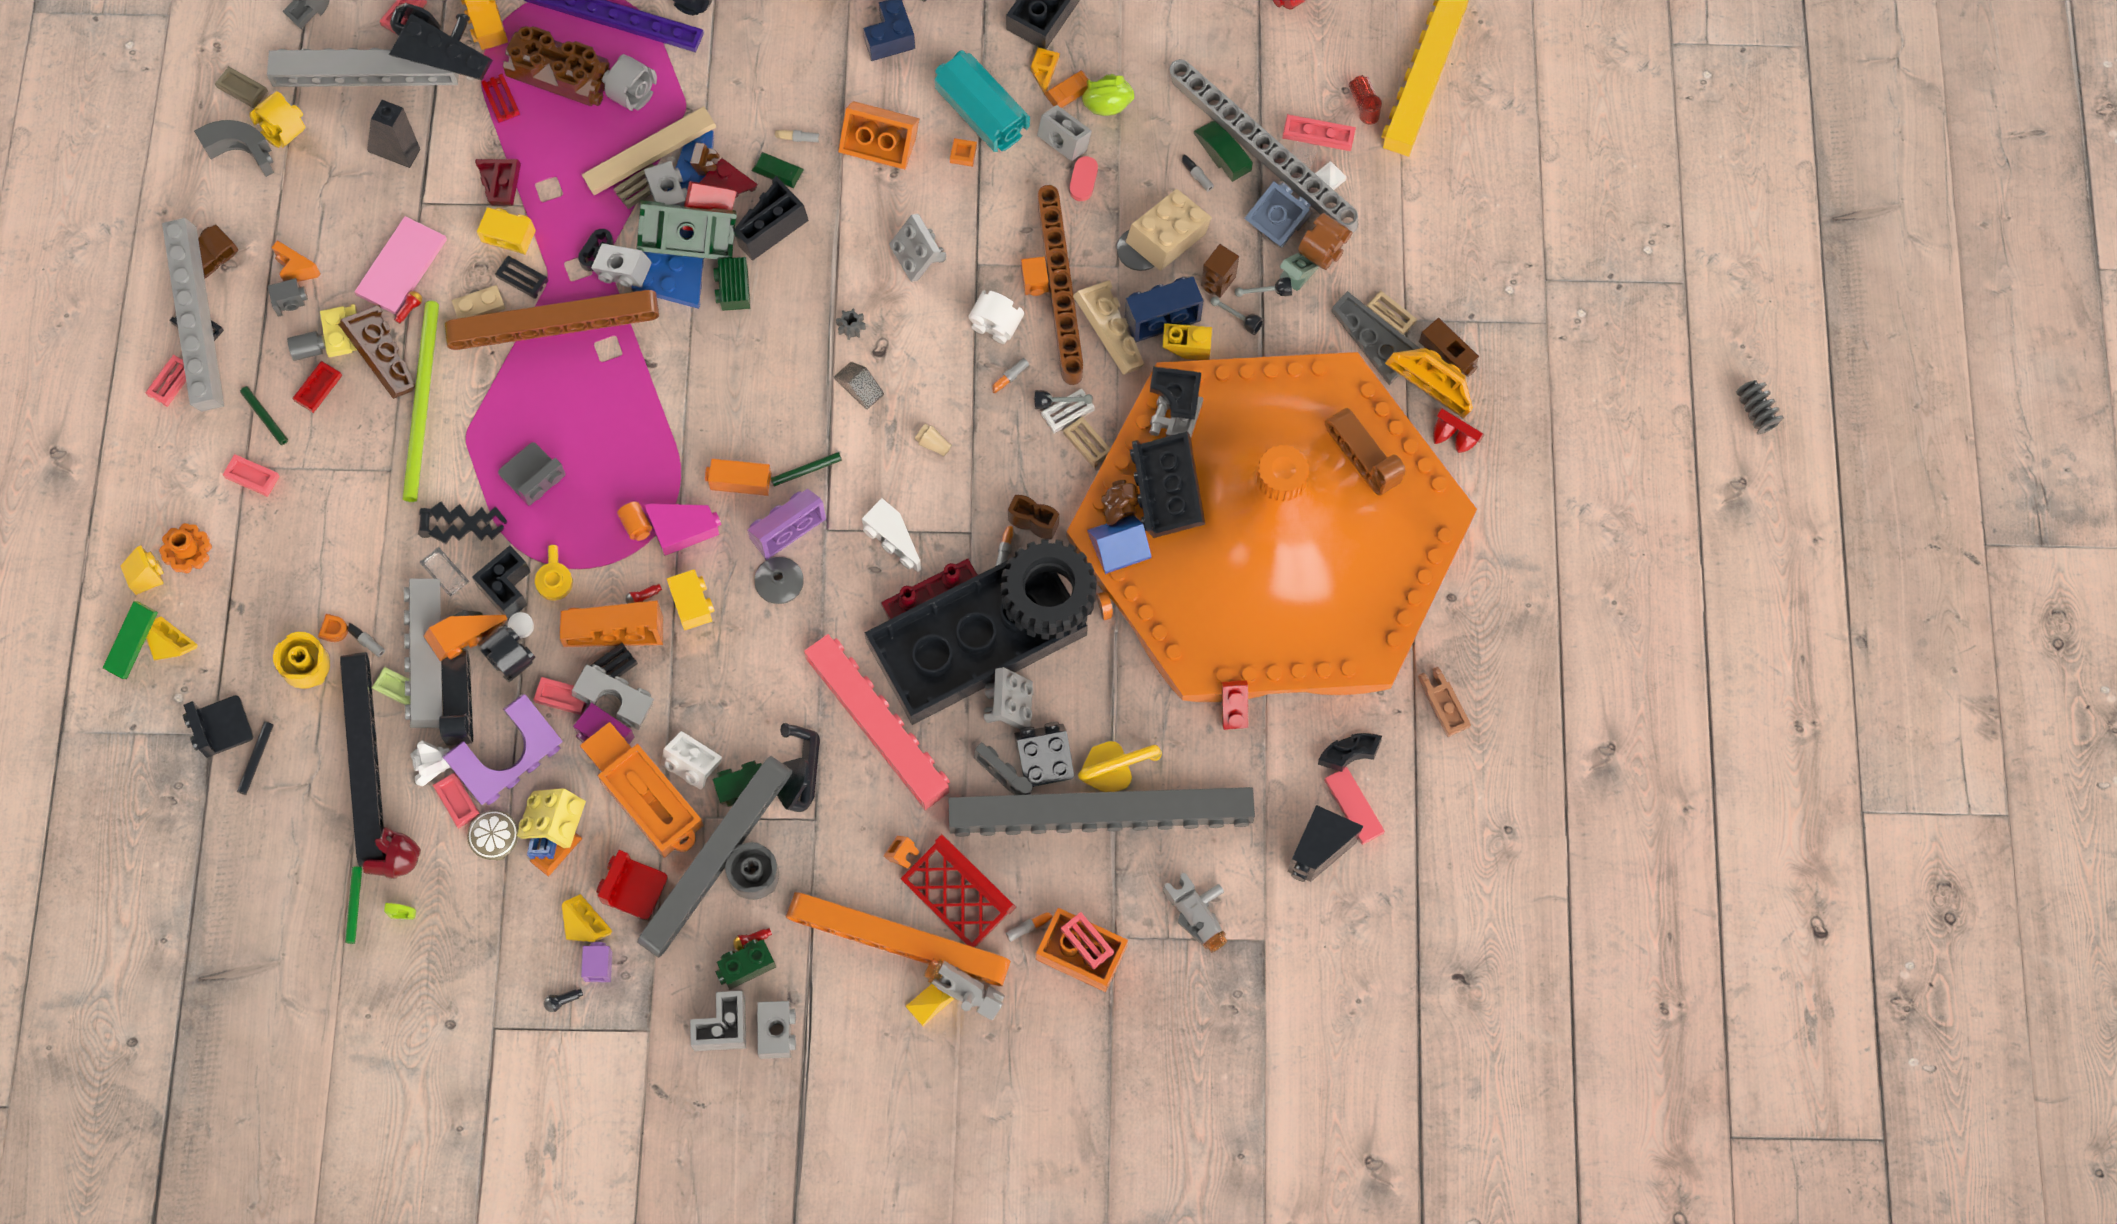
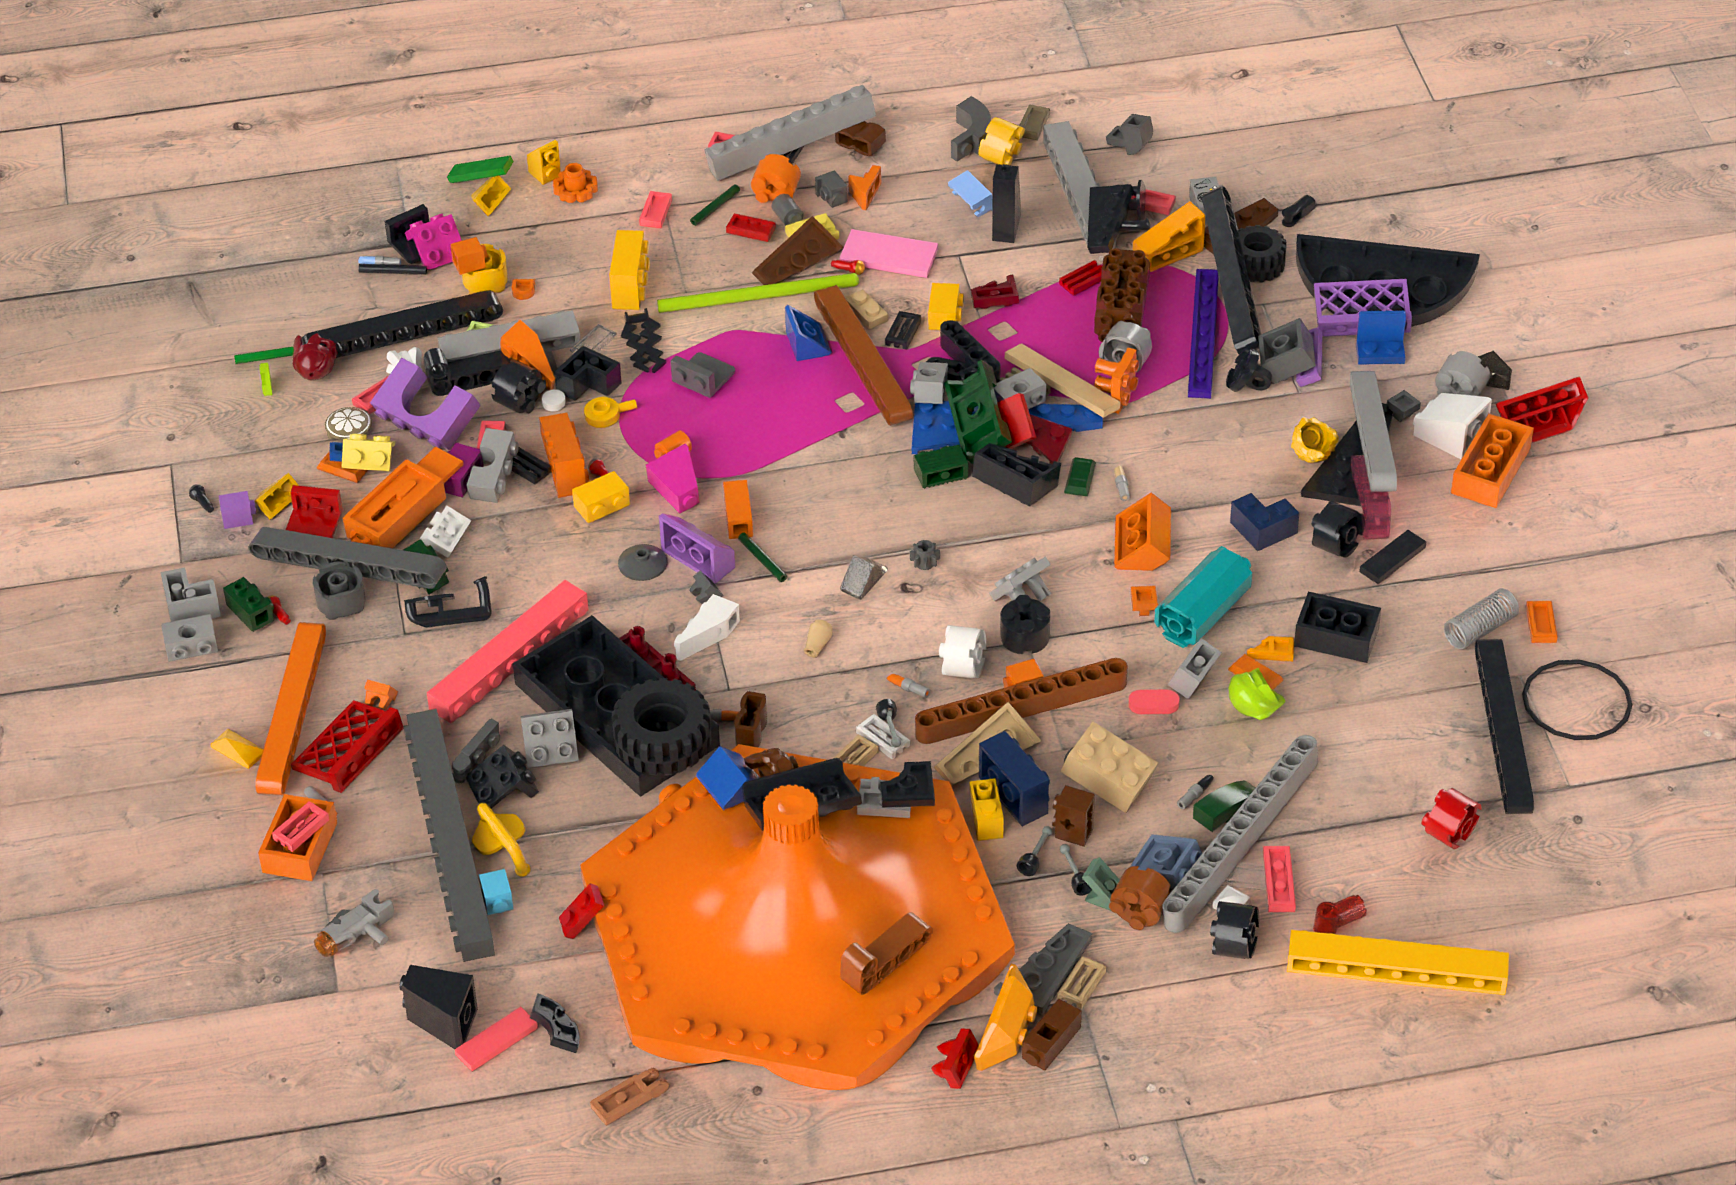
camera: 80 degrees right, 25 degrees down
(232, 702) = (434, 239): none -> dark pink bracket
(238, 769) = (379, 260): none -> piece
(260, 345) = (775, 177): none -> orange brick
(300, 666) = (468, 255): none -> orange brick
(340, 166) = (972, 192): none -> light blue hinge
(357, 514) = (628, 270): none -> yellow brick
(365, 640) = (516, 308): light grey piece -> none
(507, 367) = (805, 335): none -> blue slope
(584, 218) = (964, 347): none -> black beam
(672, 98) = (1122, 374): none -> orange plate
(702, 159) = (1062, 412): reddish brown tile -> none
(840, 523) = (705, 586): none -> dark grey tile
(964, 988) = (244, 756): light grey piece -> none
(969, 258) = (1025, 625): none -> black brick
(1187, 776) = (496, 892): none -> medium azure brick
(1375, 178) = (1235, 930): none -> black brick

